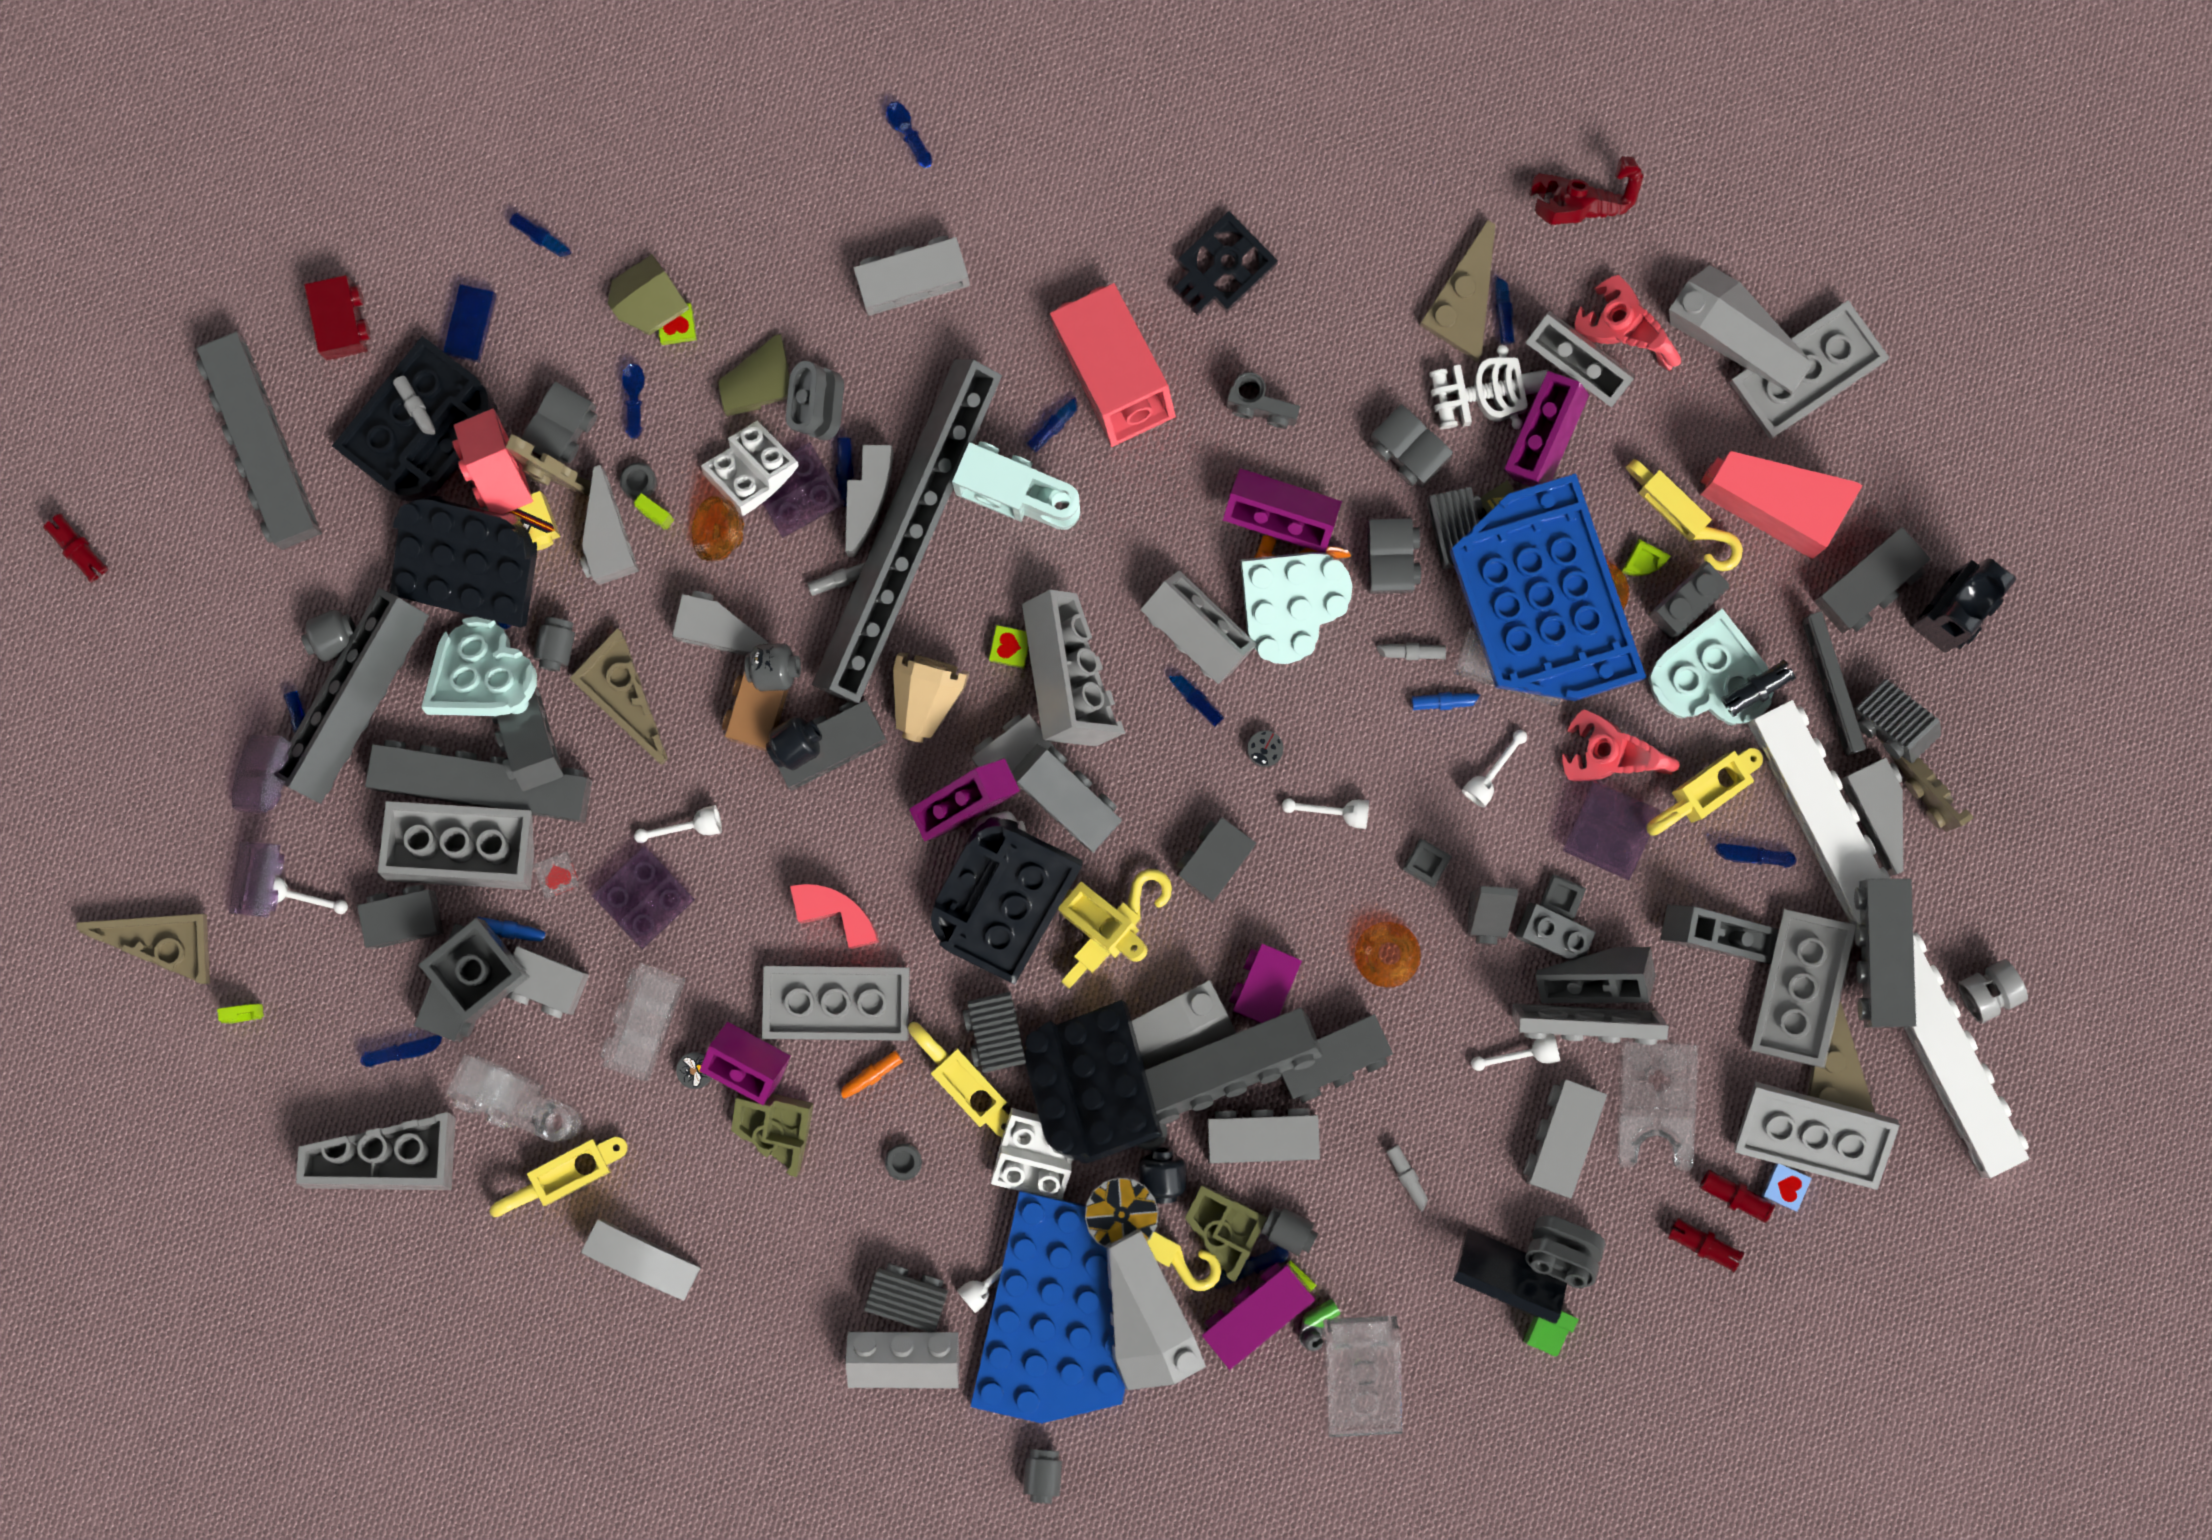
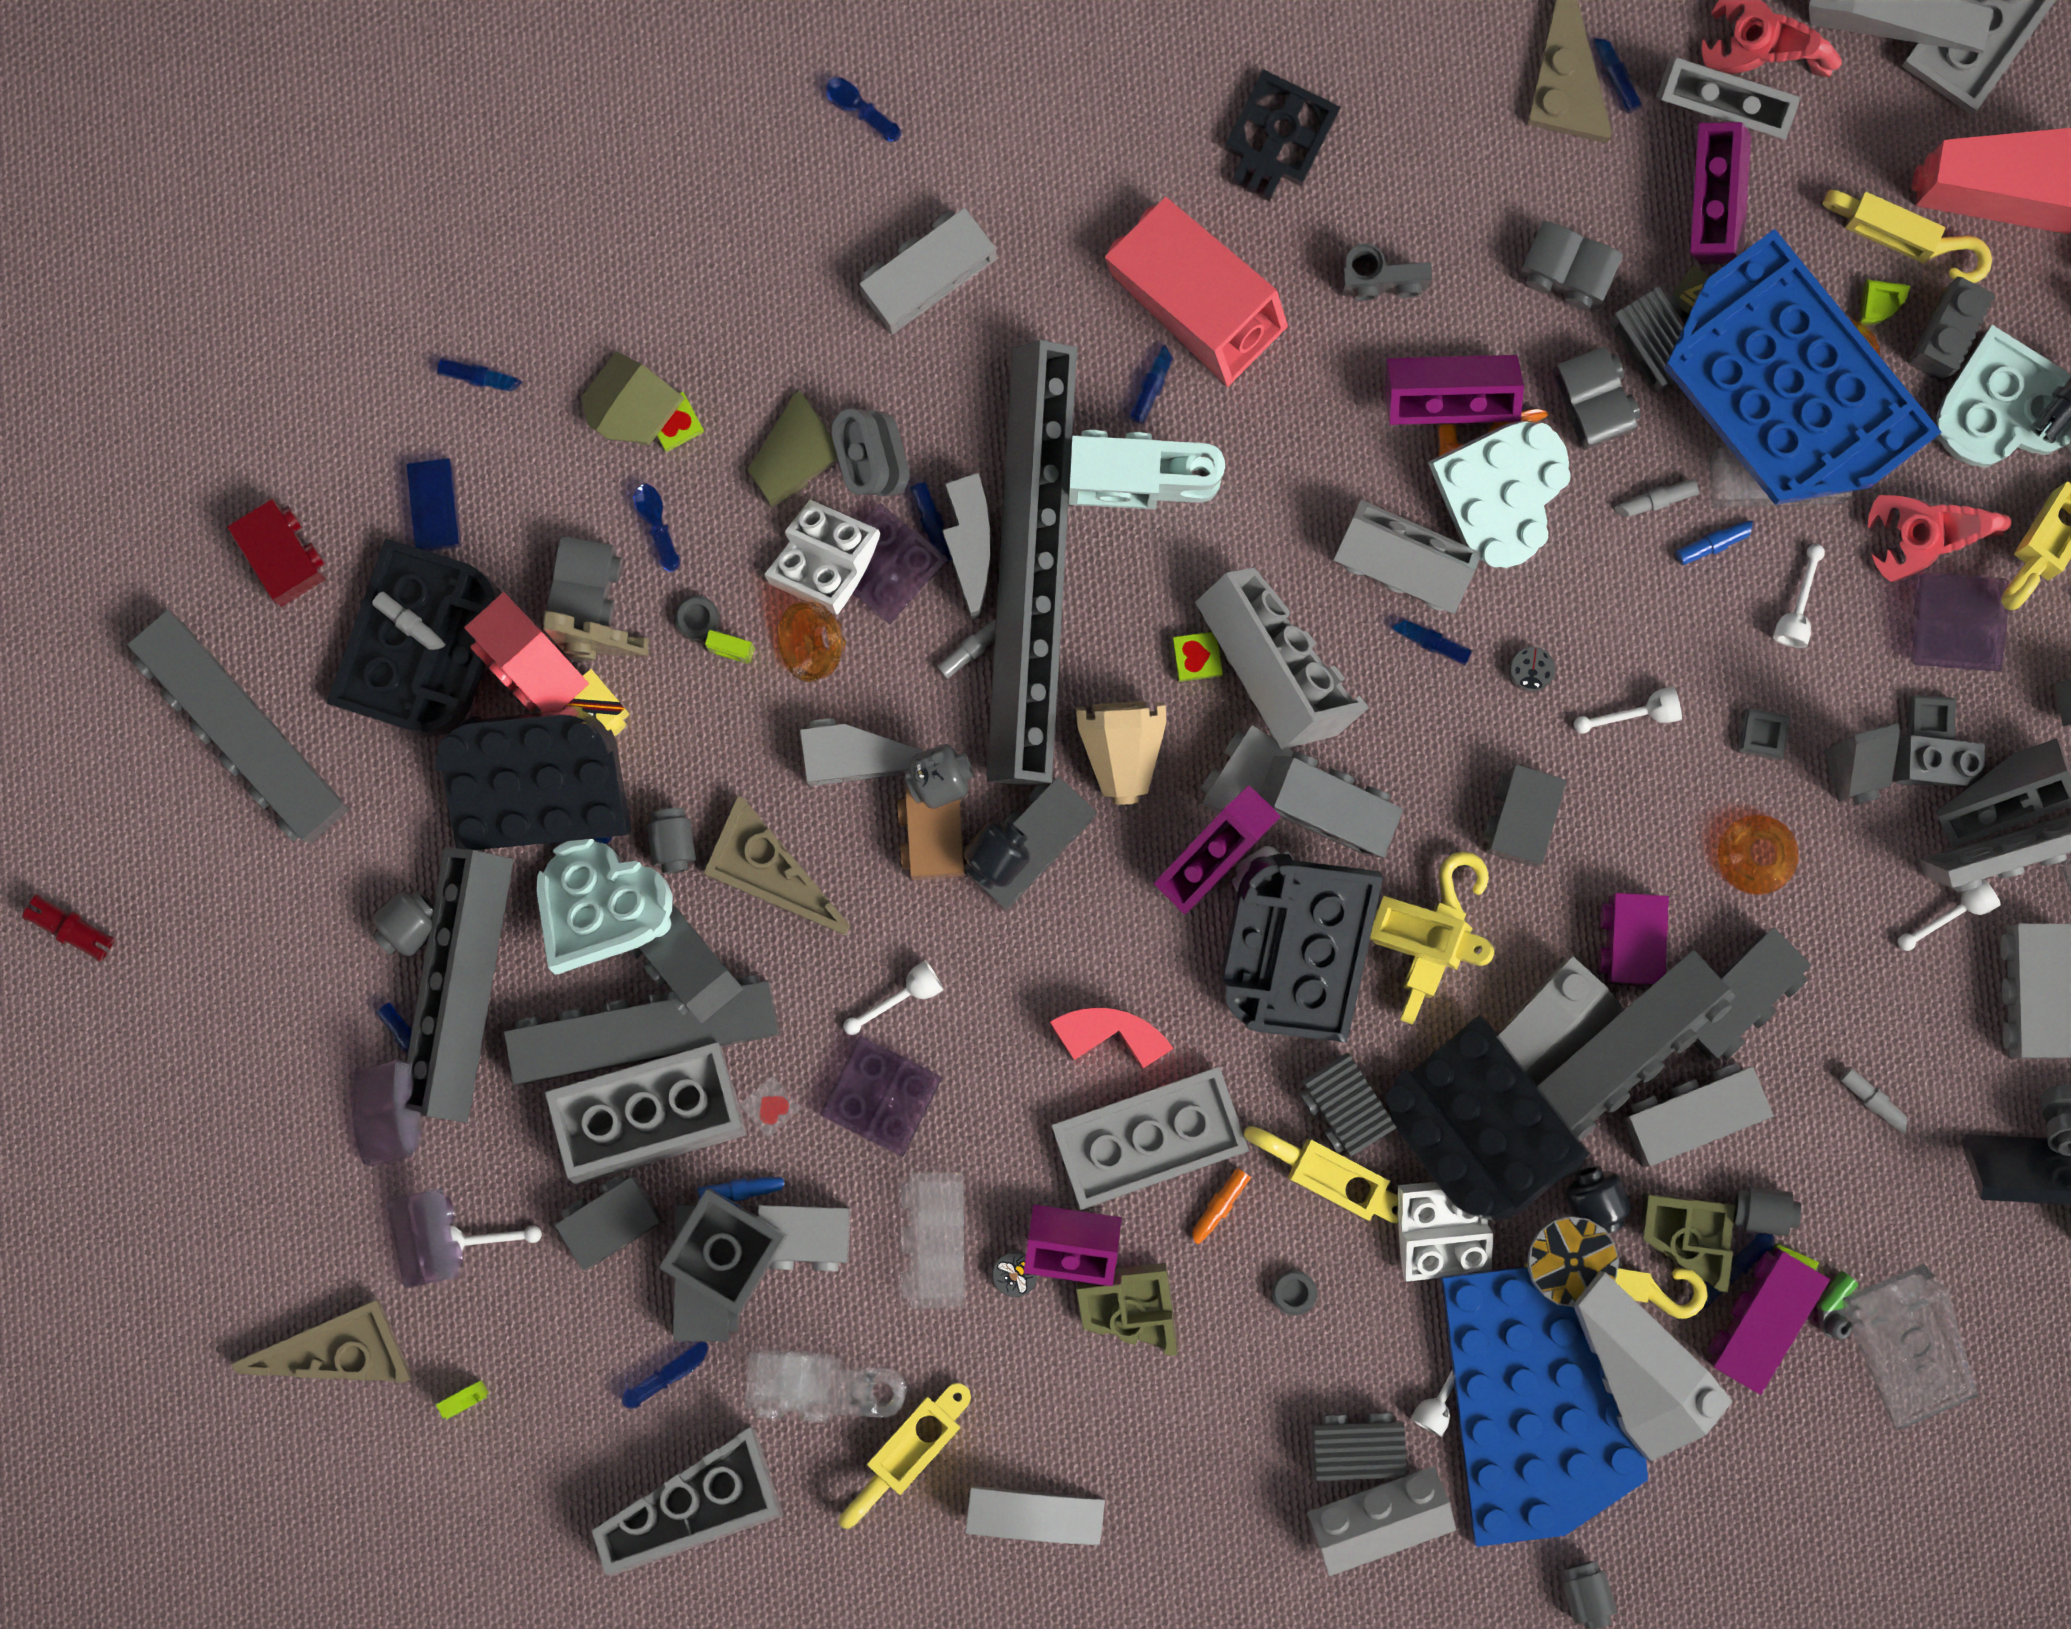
camera: 25 degrees left, 0 degrees up
(605, 538) = (684, 696): light grey slope -> none
(1521, 385) = (1660, 155): white torso -> none

